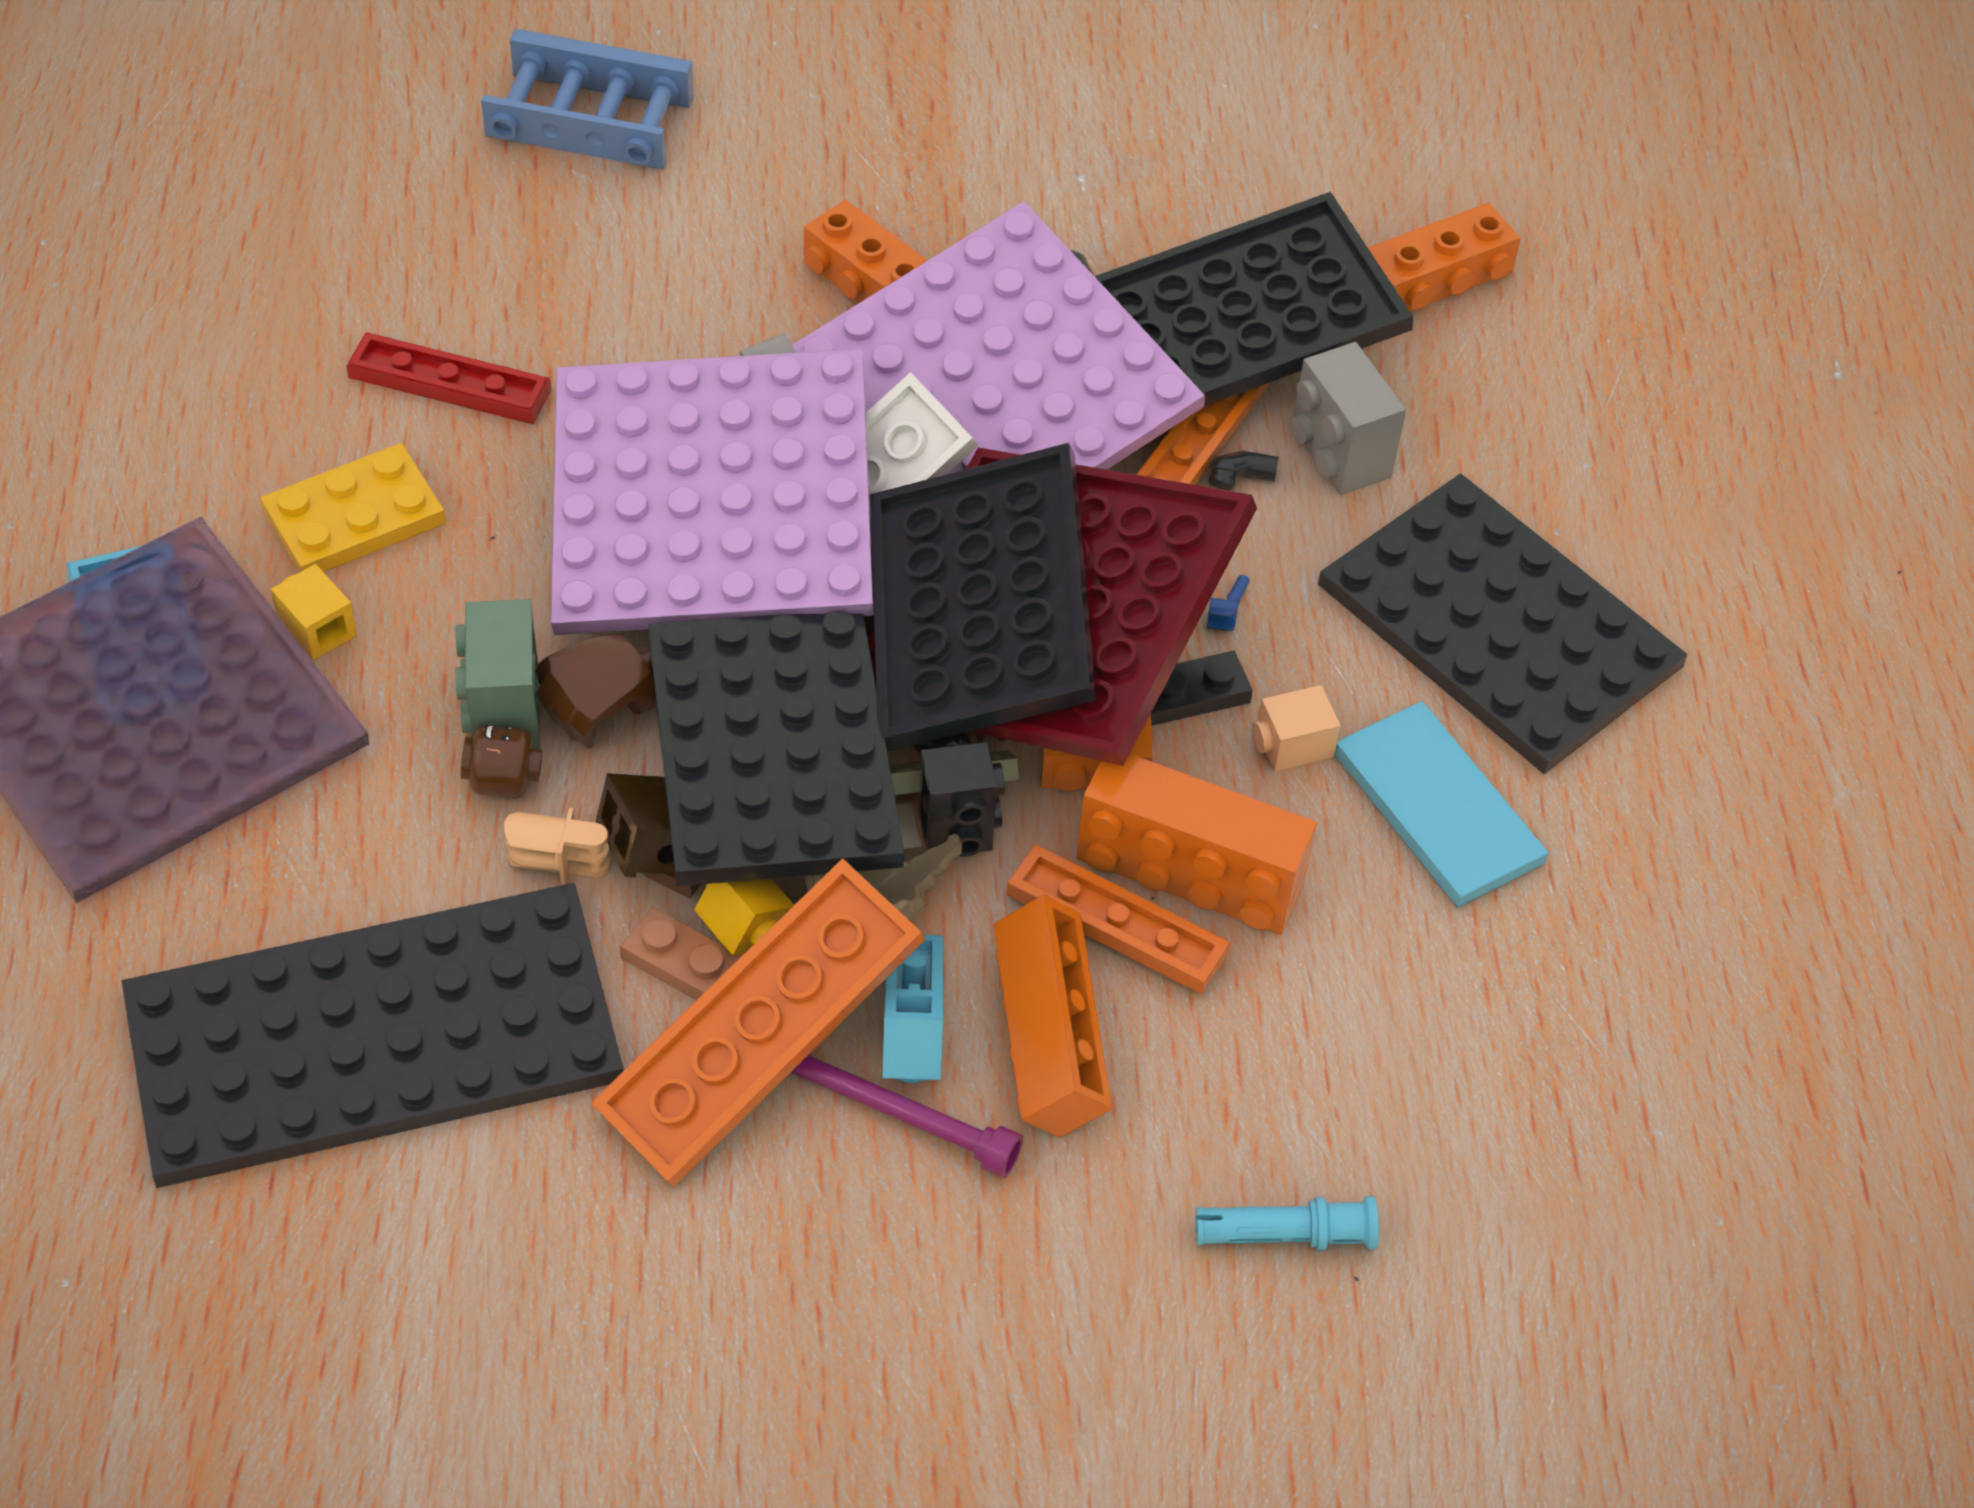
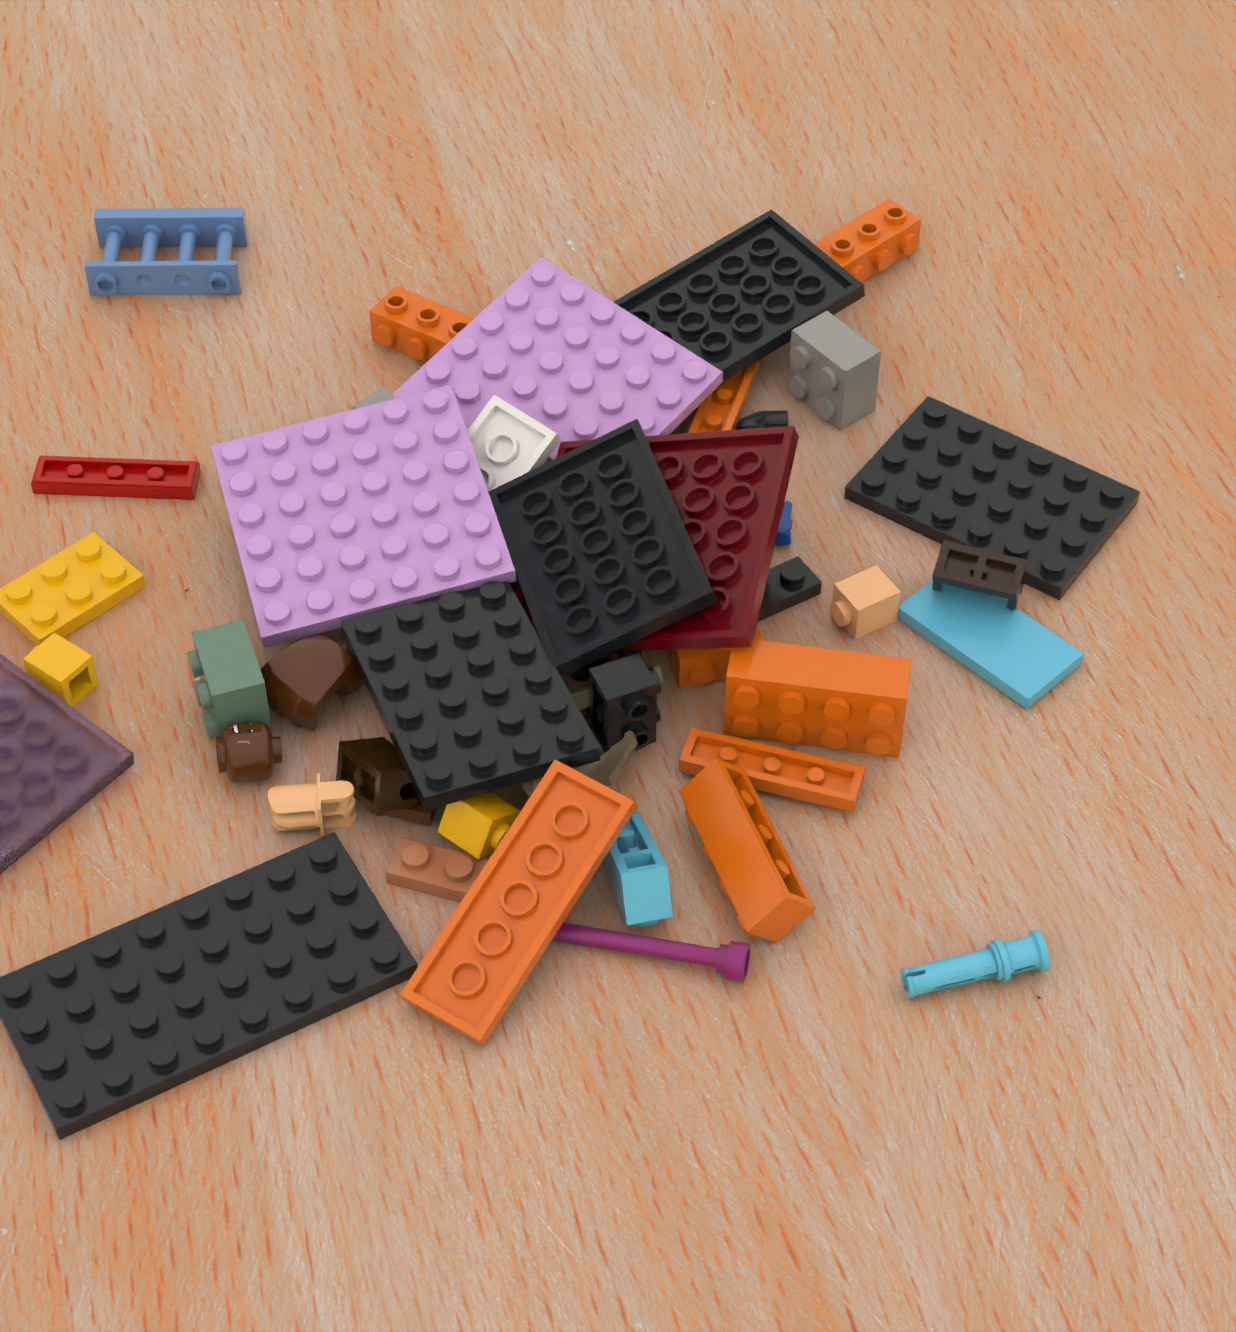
camera: 10 degrees left, 5 degrees down
(1446, 722) = (980, 571): none -> dark brown hinge

